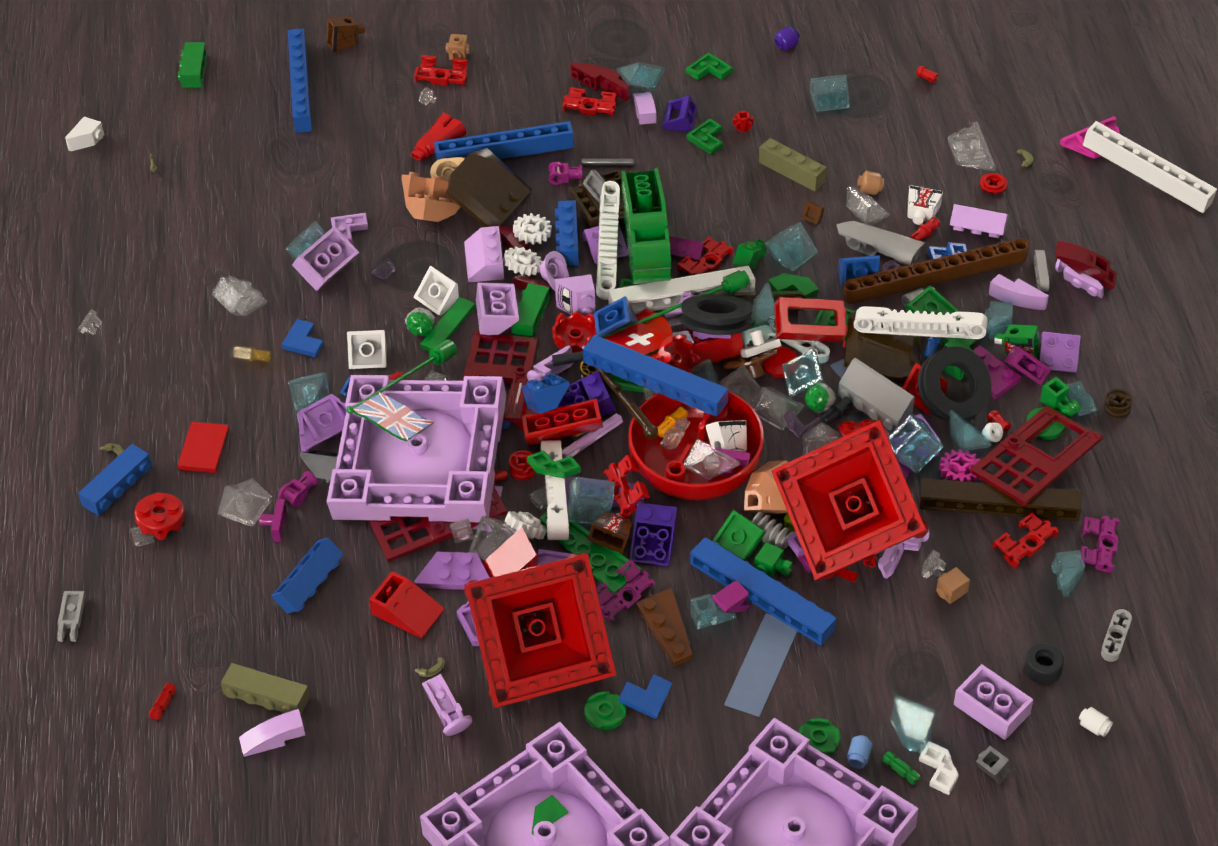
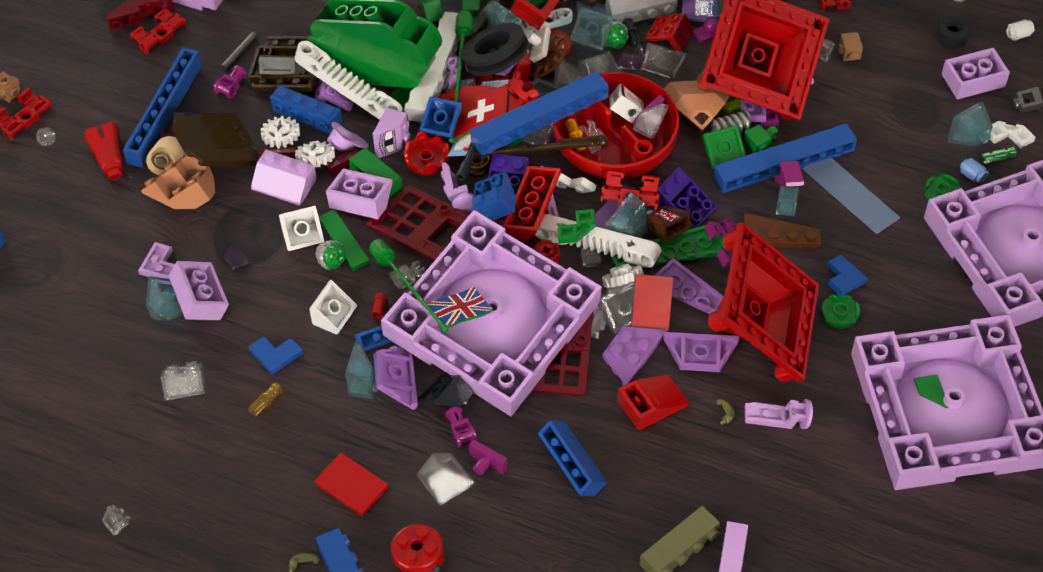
camera: 60 degrees left, 5 degrees up
(614, 447) = (580, 184): none -> white tile

